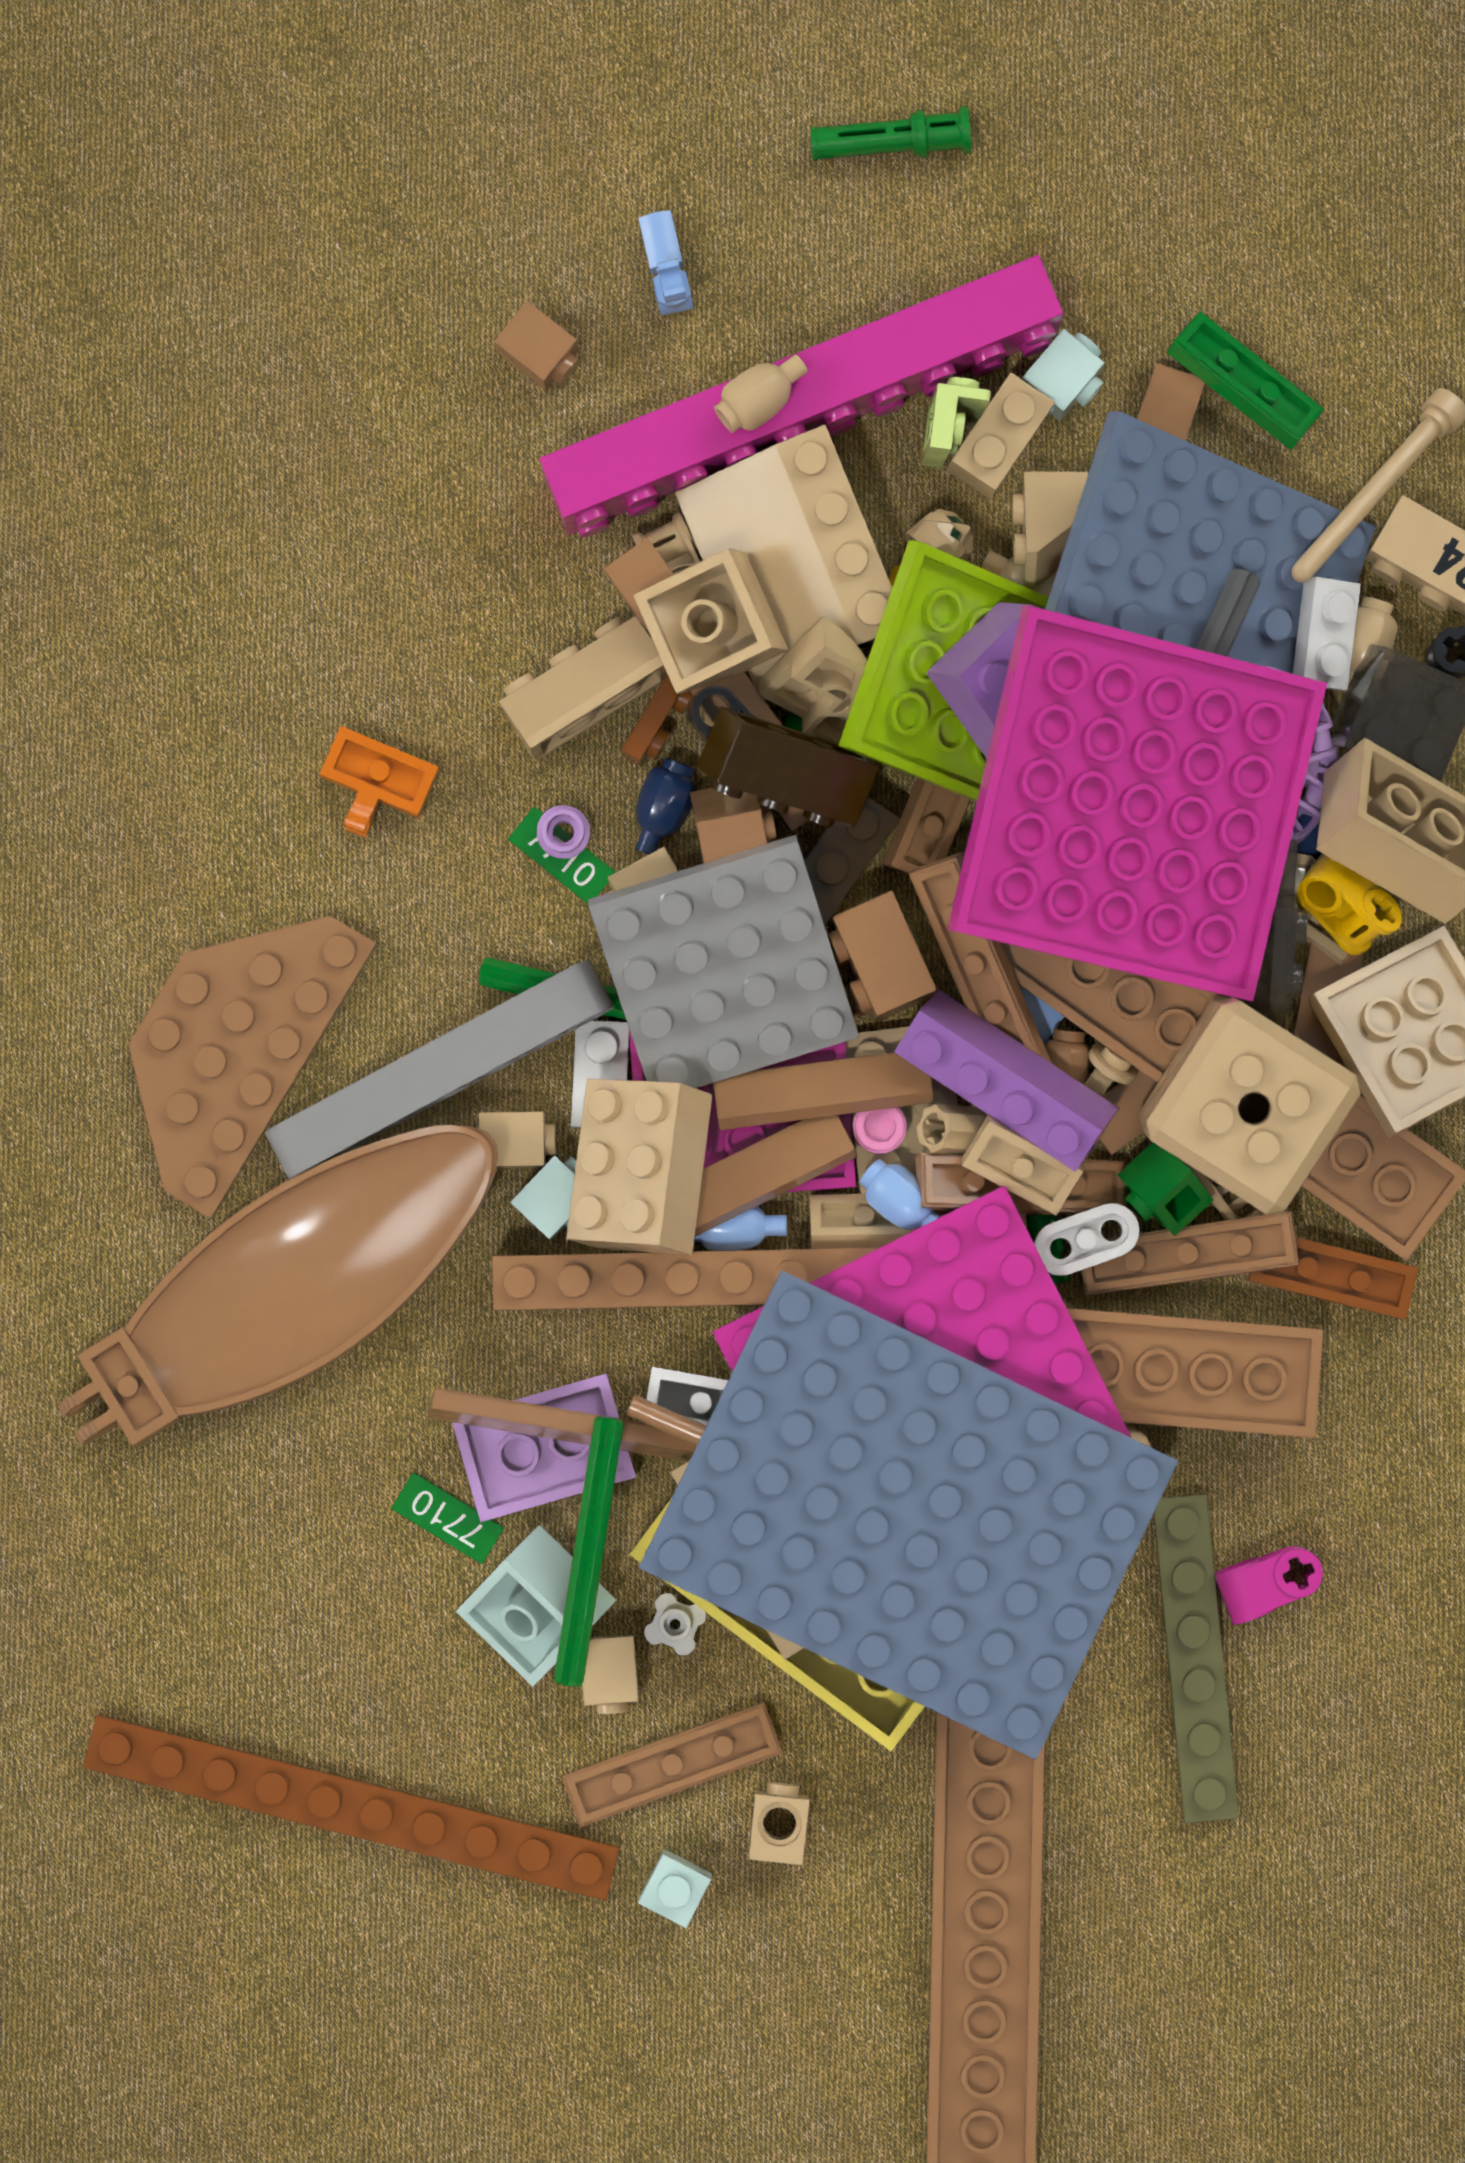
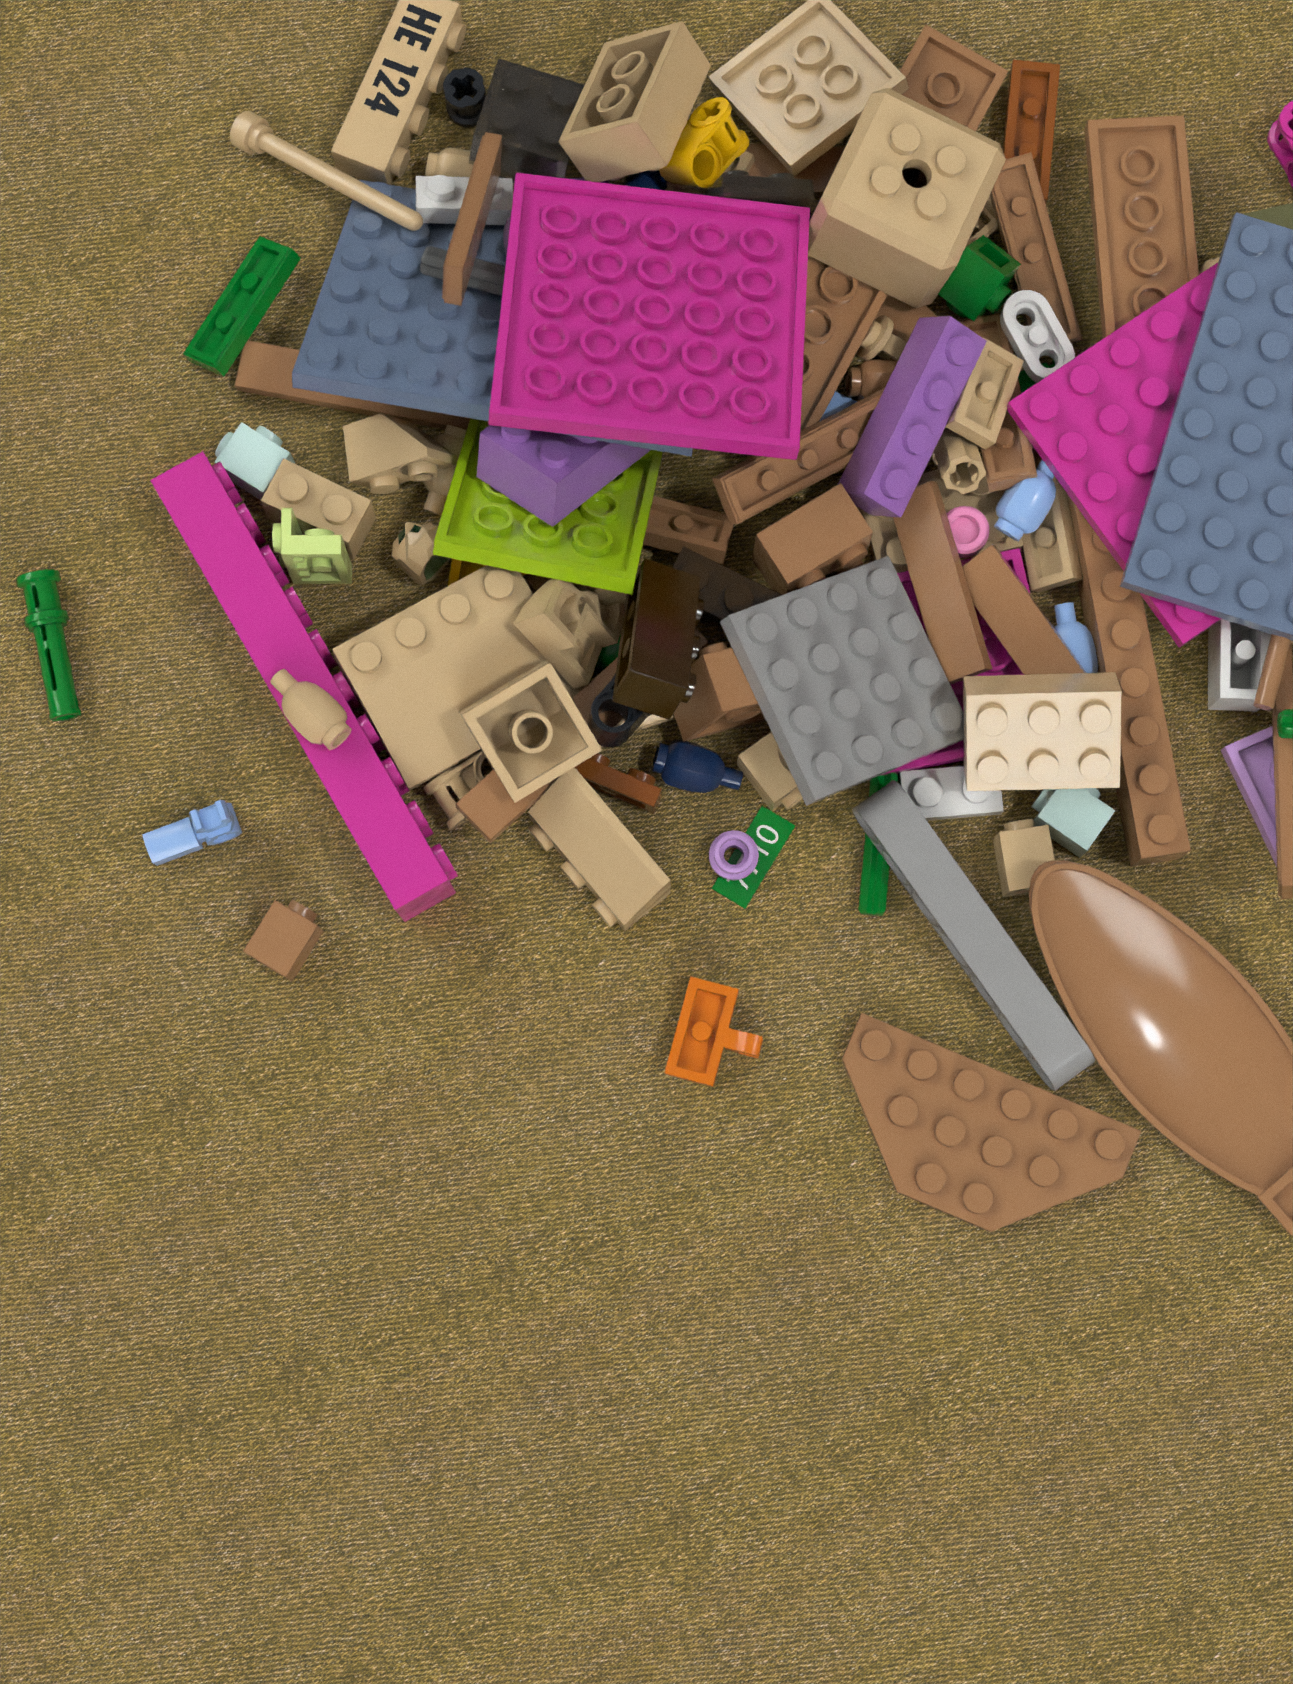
camera: 100 degrees left, 5 degrees down
(1280, 629) = (472, 219): none -> medium nougat tile

